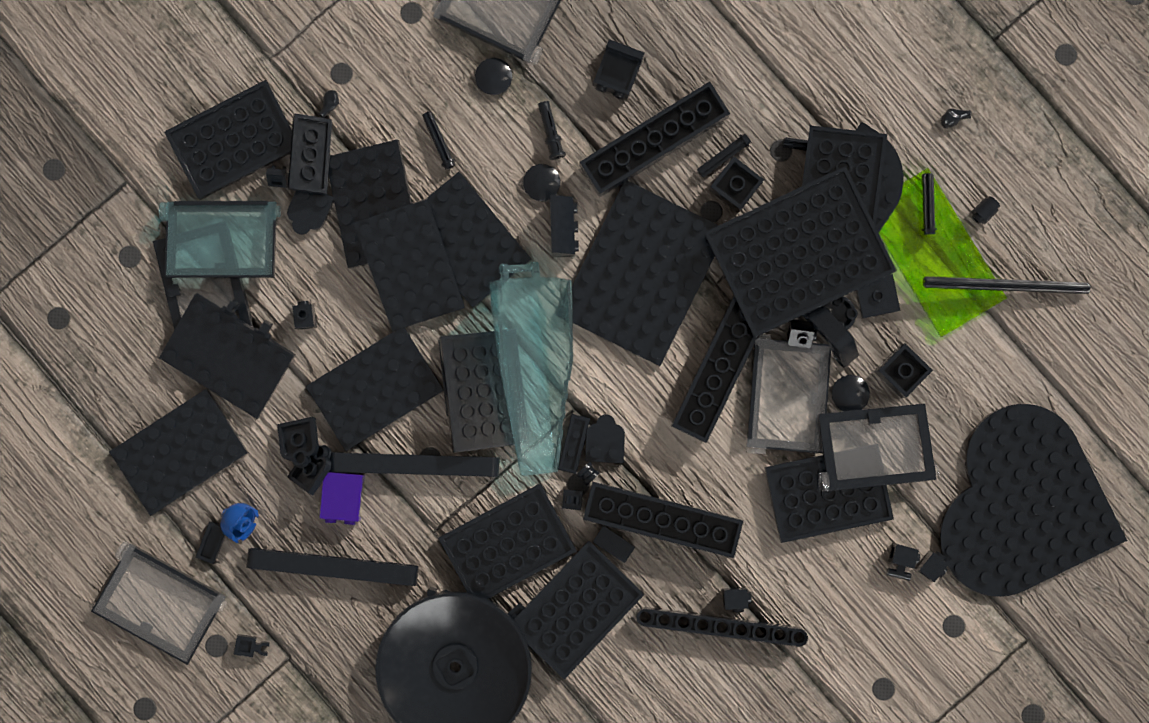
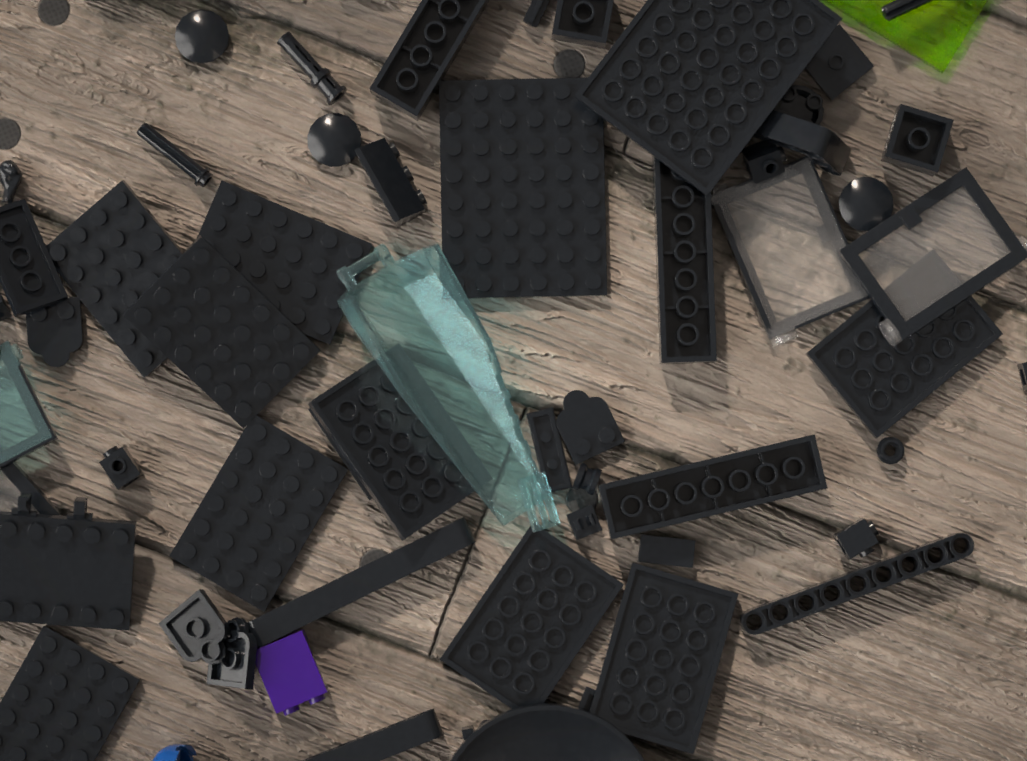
camera: 30 degrees left, 0 degrees up
(554, 489) = (548, 498): none -> clear light blue tile
(789, 559) = (898, 446): none -> black plate

